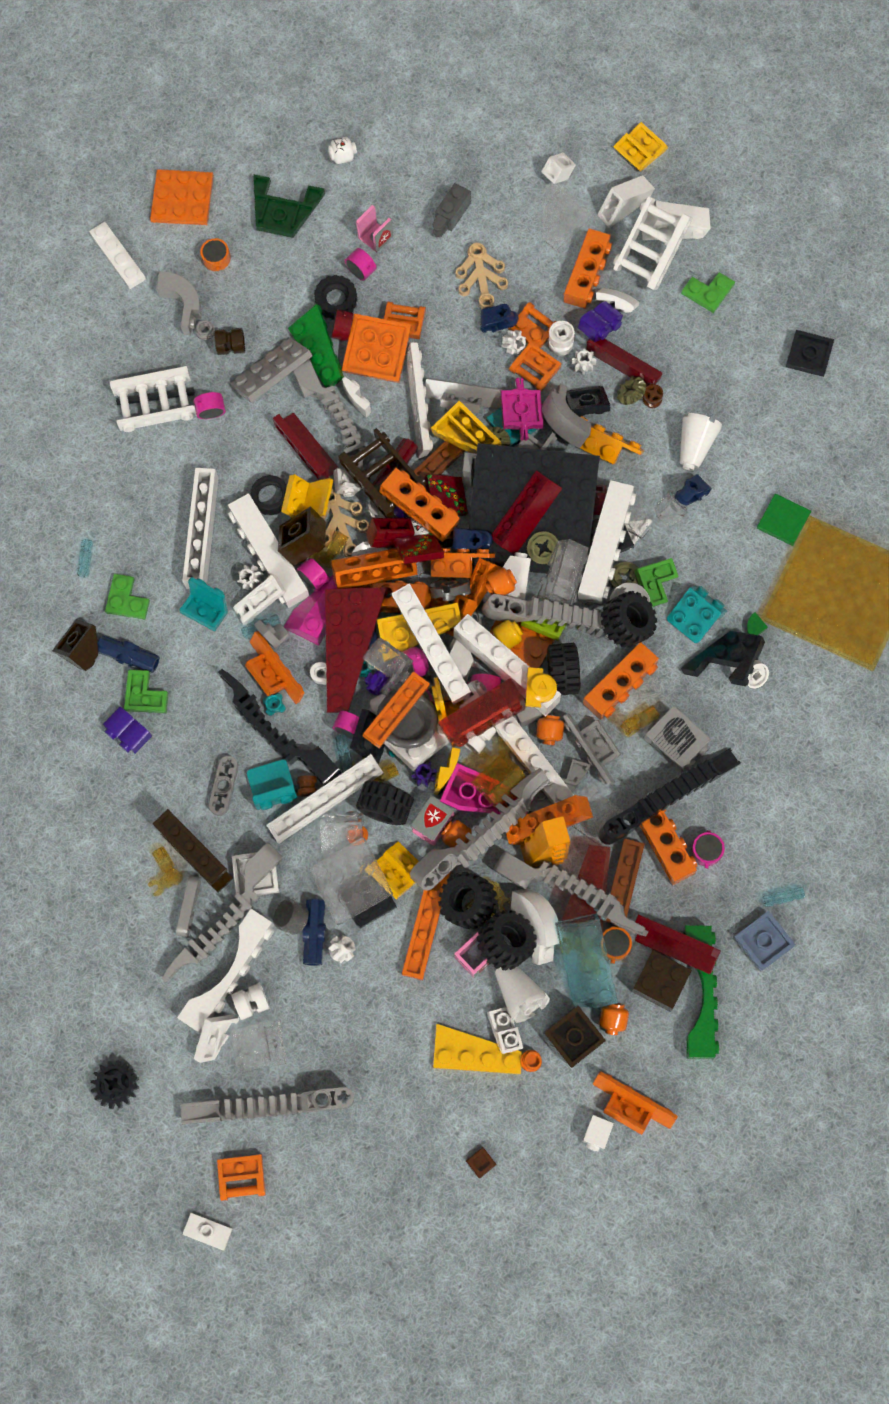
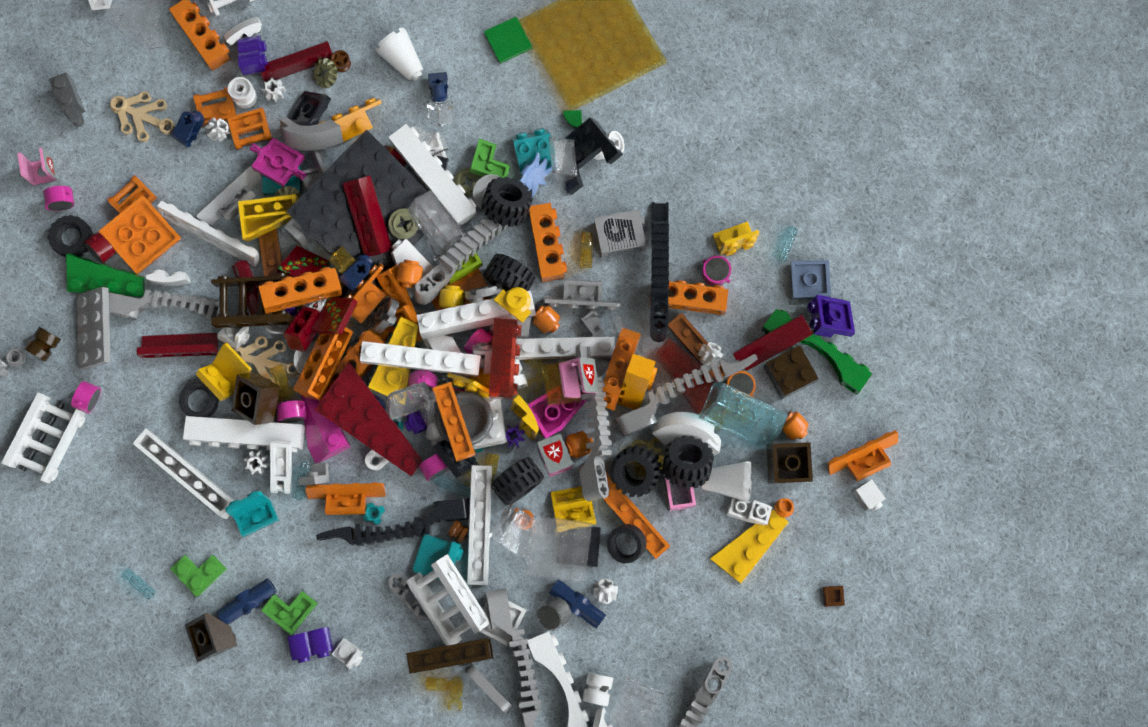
camera: 60 degrees left, 5 degrees up
(140, 767) = (348, 653): none -> white bracket
(250, 821) = (461, 595): none -> white fence
(384, 931) = (618, 555): none -> black tyre
(471, 519) = (342, 259): none -> clear yellow plate
(510, 787) = (570, 381): none -> bright pink piece
(530, 655) = (477, 294): none -> light grey plate
(624, 893) = (709, 353): none -> white gear
(674, 627) = (534, 173): none -> medium blue piece
(705, 639) = (563, 159): none -> clear slope
(742, 983) = (831, 316): none -> dark purple plate
(751, 845) = (735, 238): none -> yellow bracket

